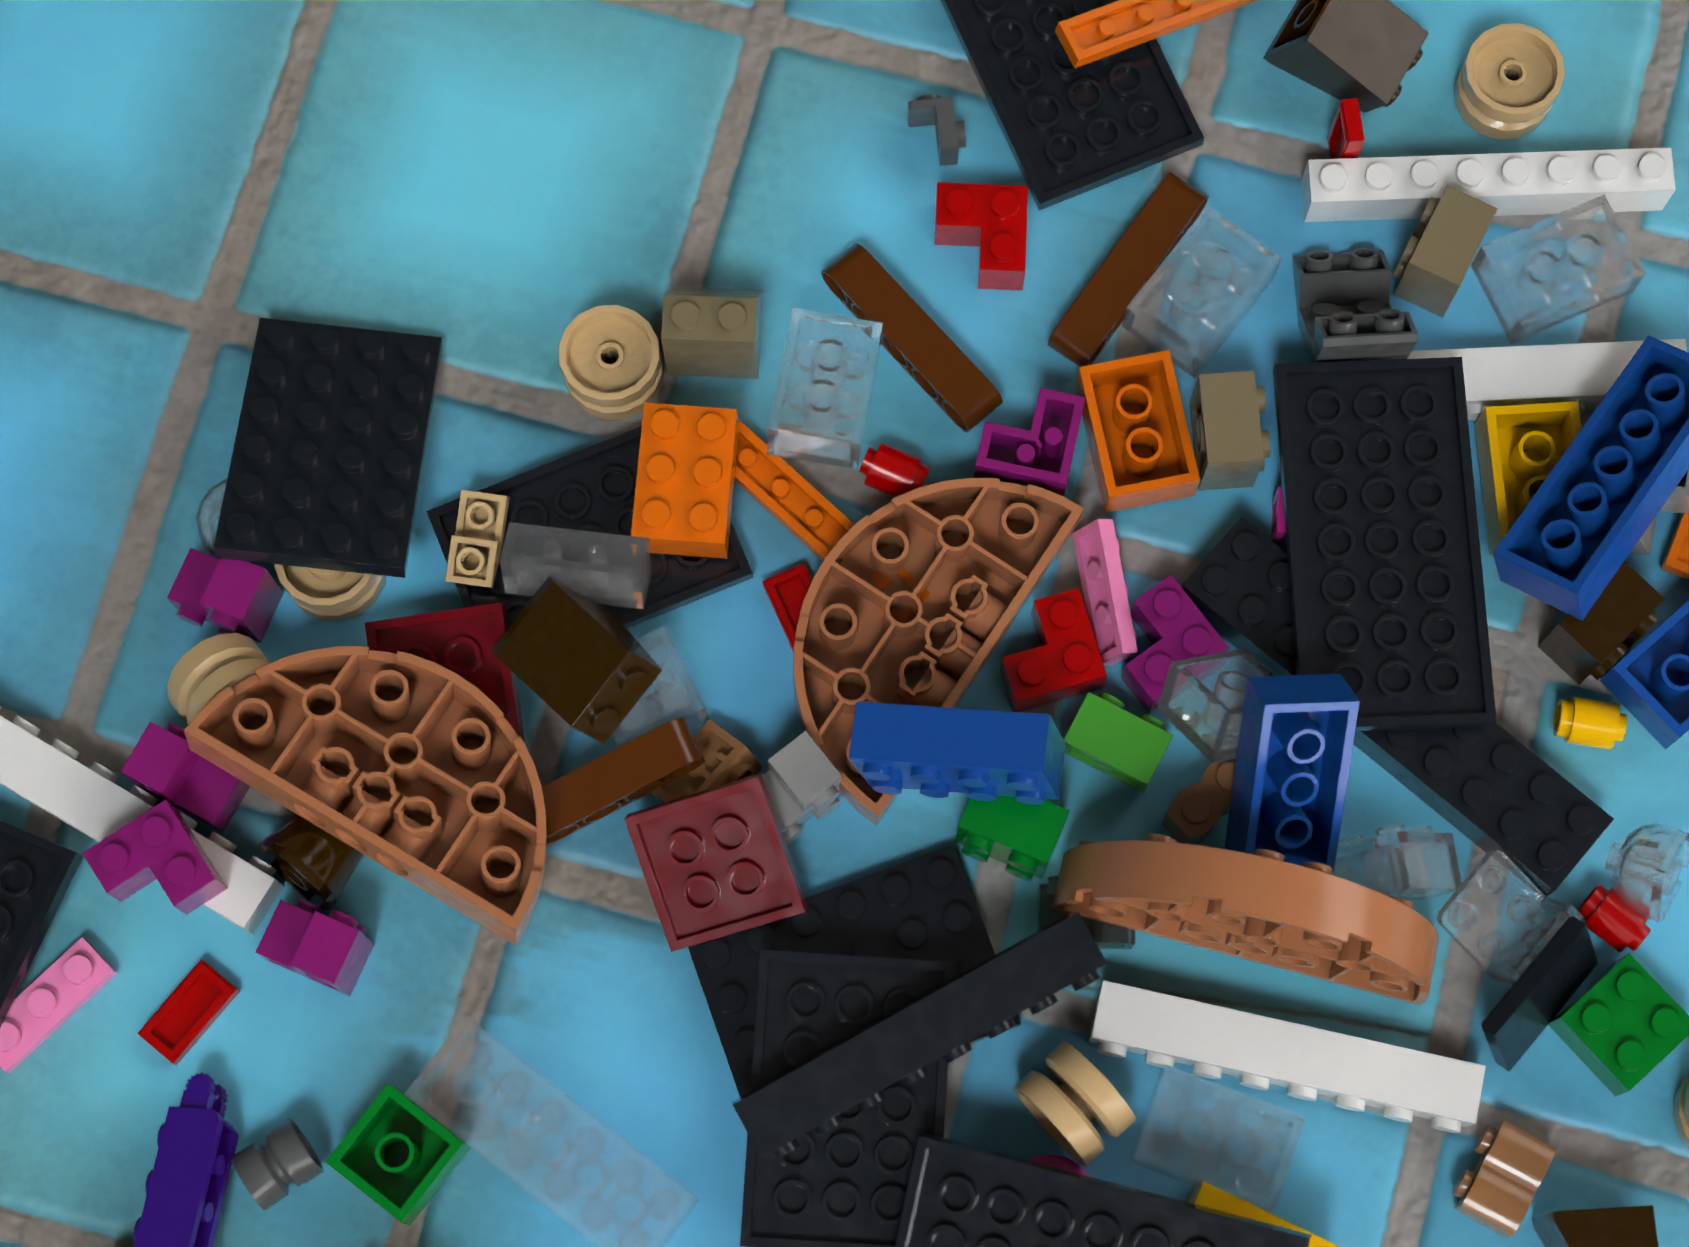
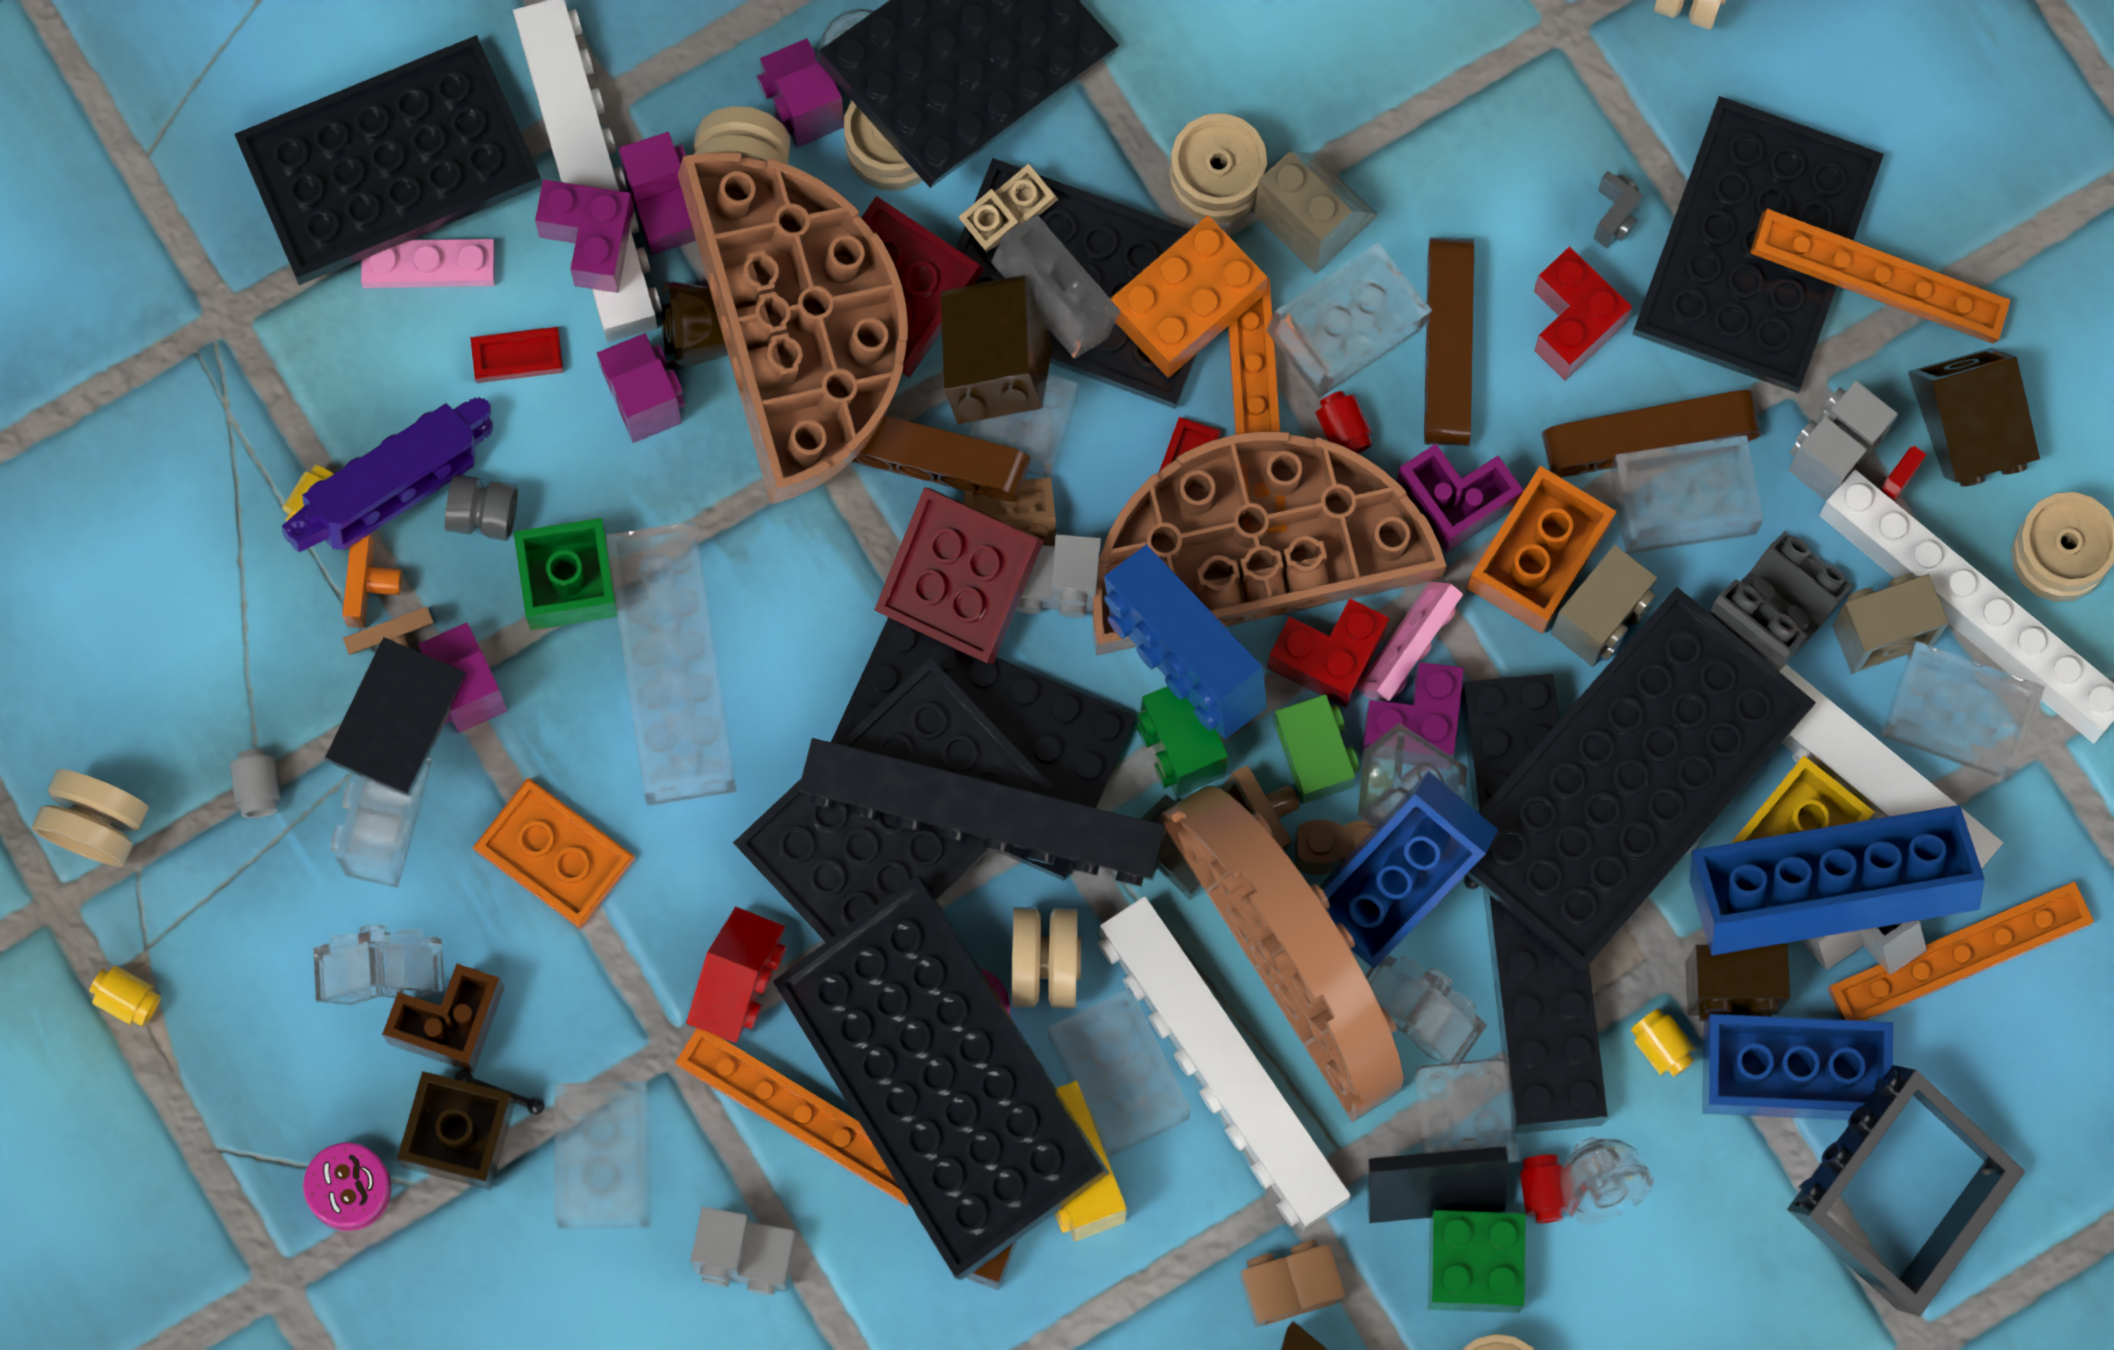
camera: 40 degrees right, 0 degrees up
(1120, 824) = (1247, 791): none -> medium nougat tile
(1275, 157) = (1845, 437): none -> light grey piece

